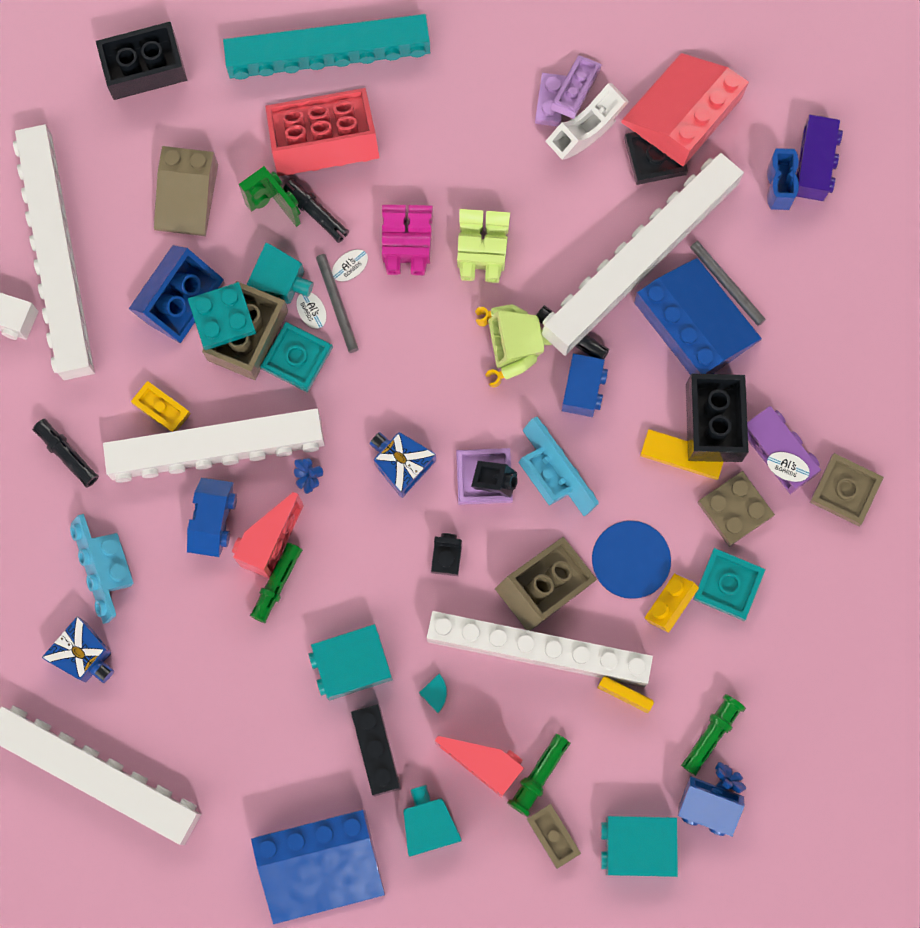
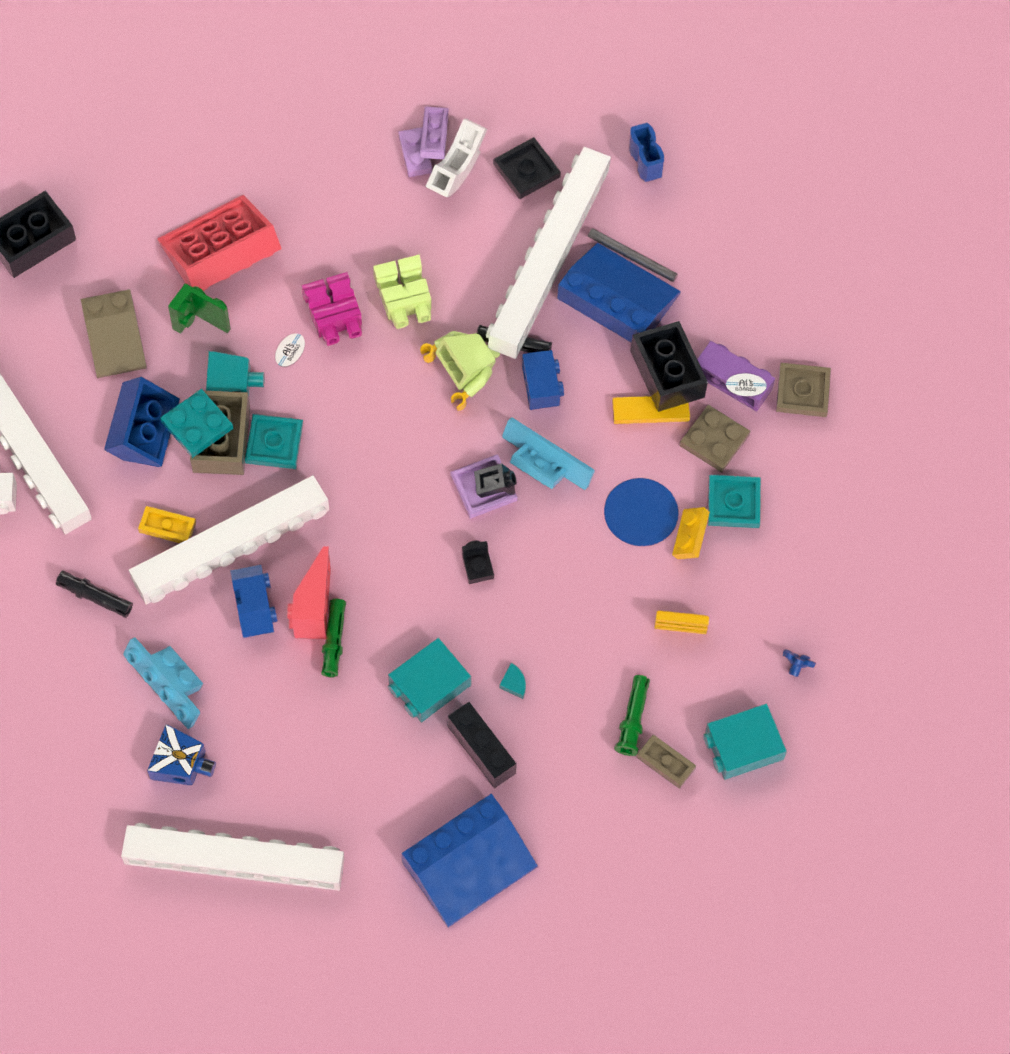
camera: 25 degrees left, 10 degrees down
(307, 203) = (247, 314): black pin -> none
(307, 475) = (324, 536): blue plant -> none
(311, 310) = (270, 399): white sticker -> none
(327, 46) = (194, 170): teal brick -> none
(337, 303) = (292, 385): flat silver bar -> none
(401, 461) = (405, 496): torso -> none
(428, 824) = (553, 790): teal torso -> none
(488, 764) = (581, 718): coral slope -> none
(539, 649) = (589, 610): white brick -> none
(545, 584) = (574, 556): dark tan slope -> none
(686, 106) = (537, 118): coral slope -> none
(711, 807) = (792, 686): brick -> none
(719, 724) = (772, 618): green pin -> none
(818, 157) = (669, 124): dark purple brick -> none

